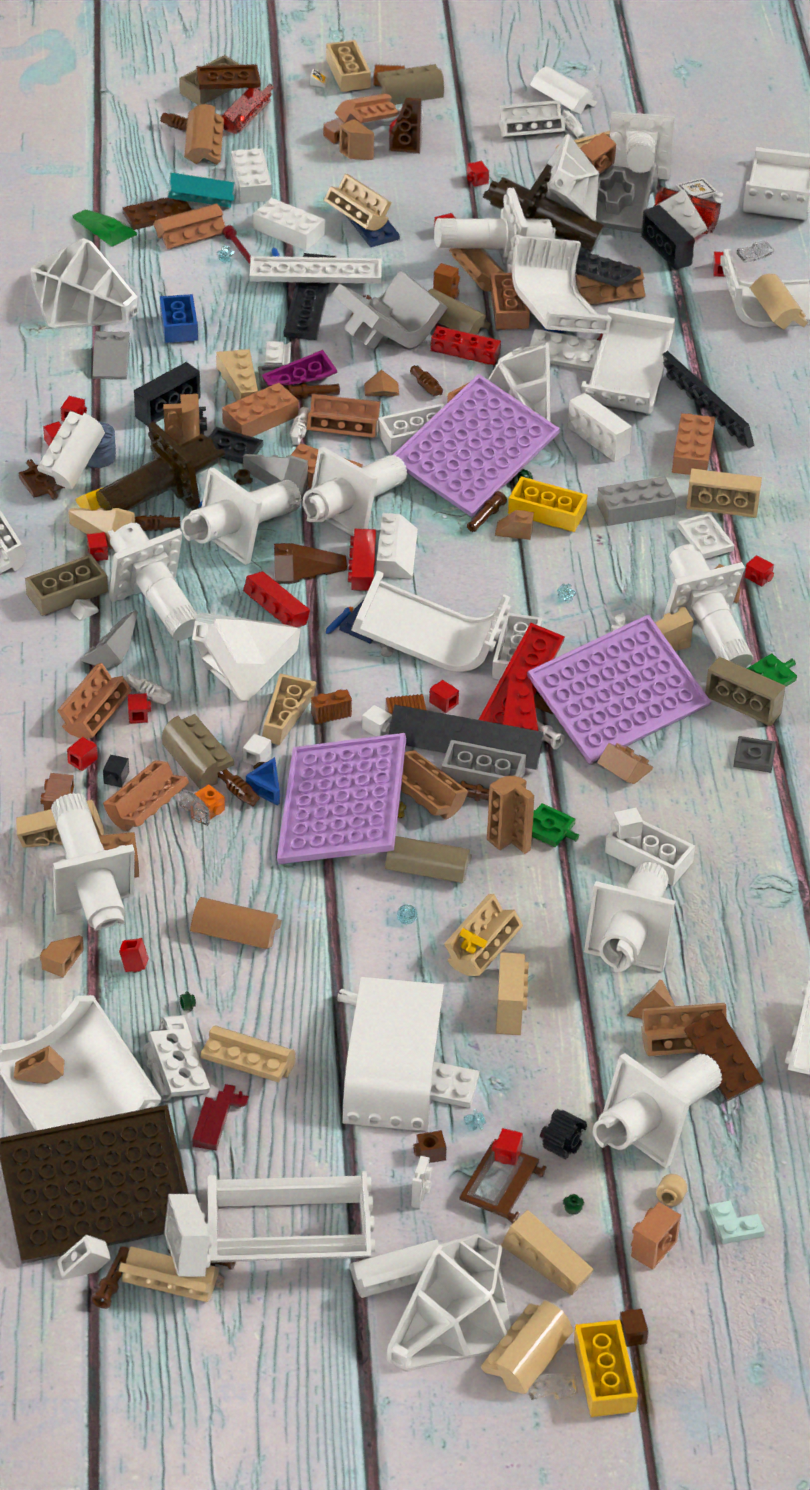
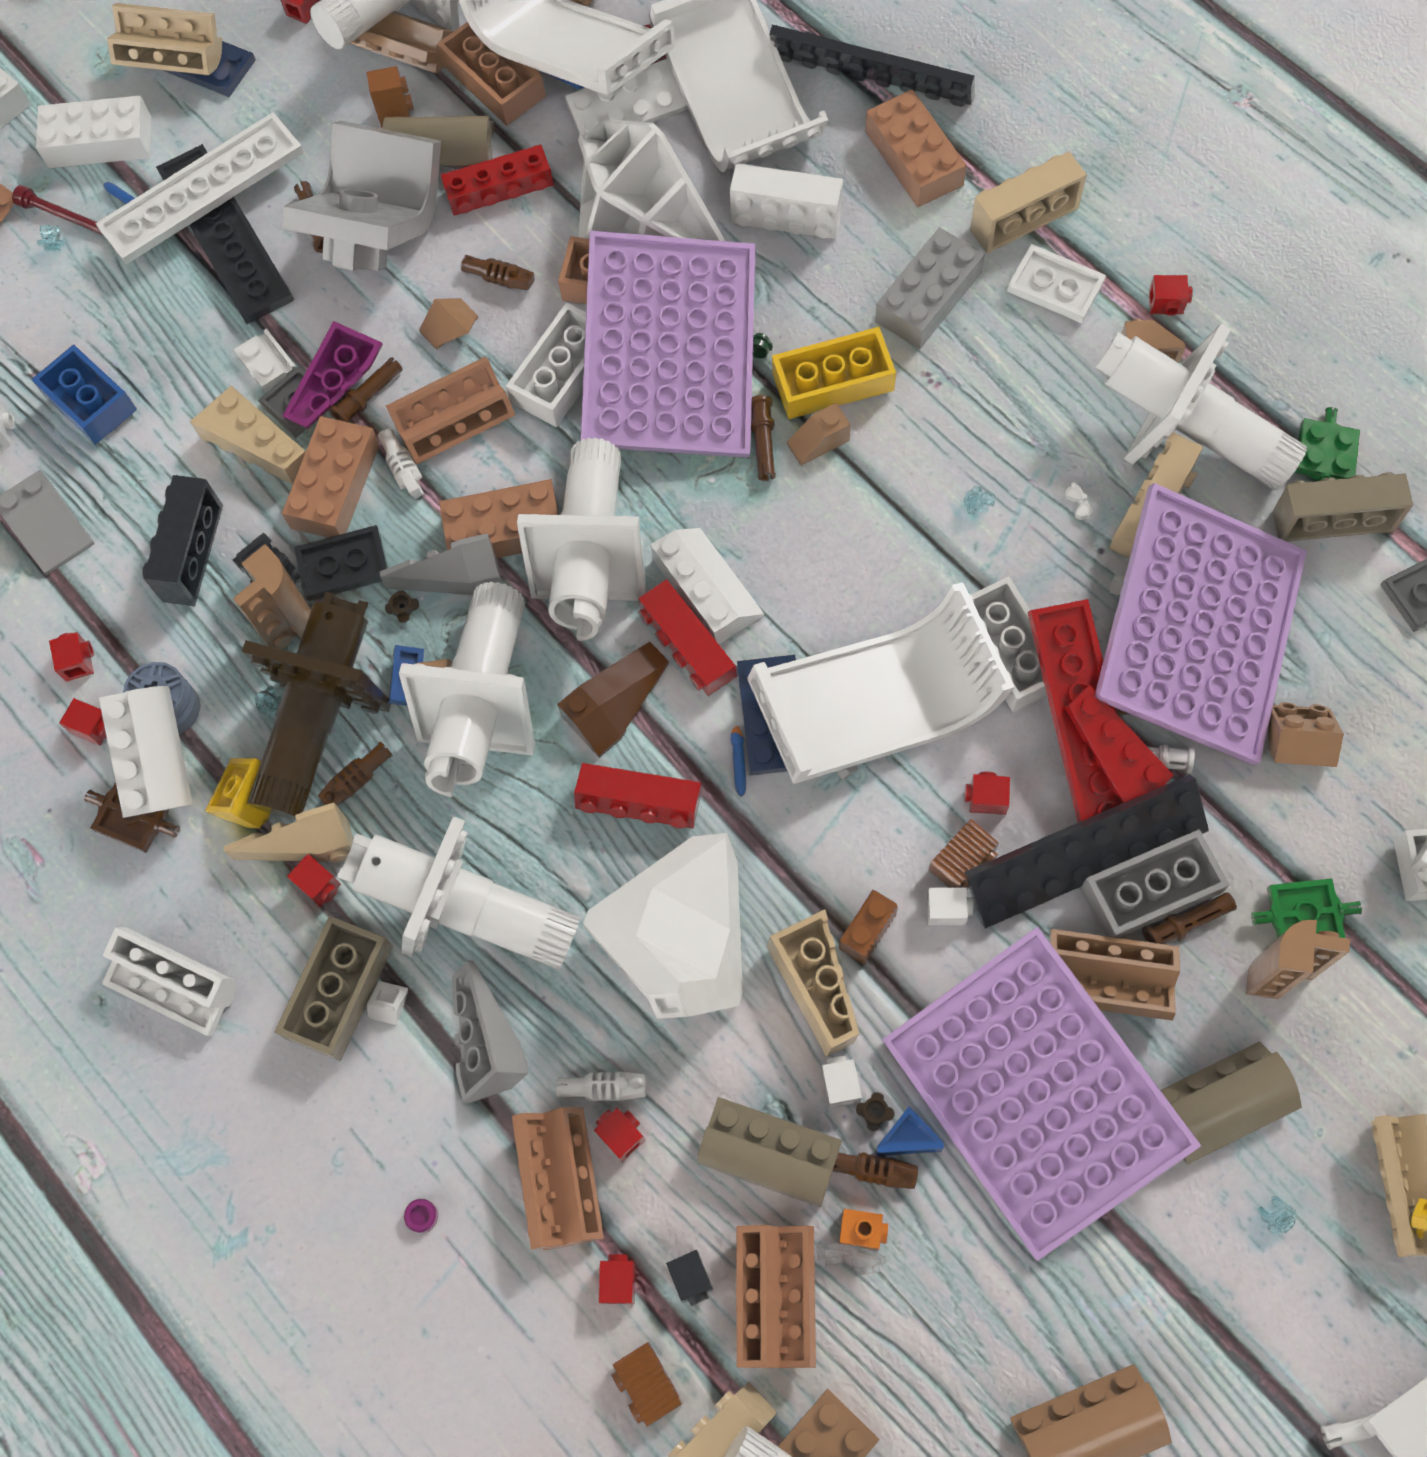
camera: 30 degrees left, 25 degrees up
(21, 686) = (421, 1215): none -> magenta tile

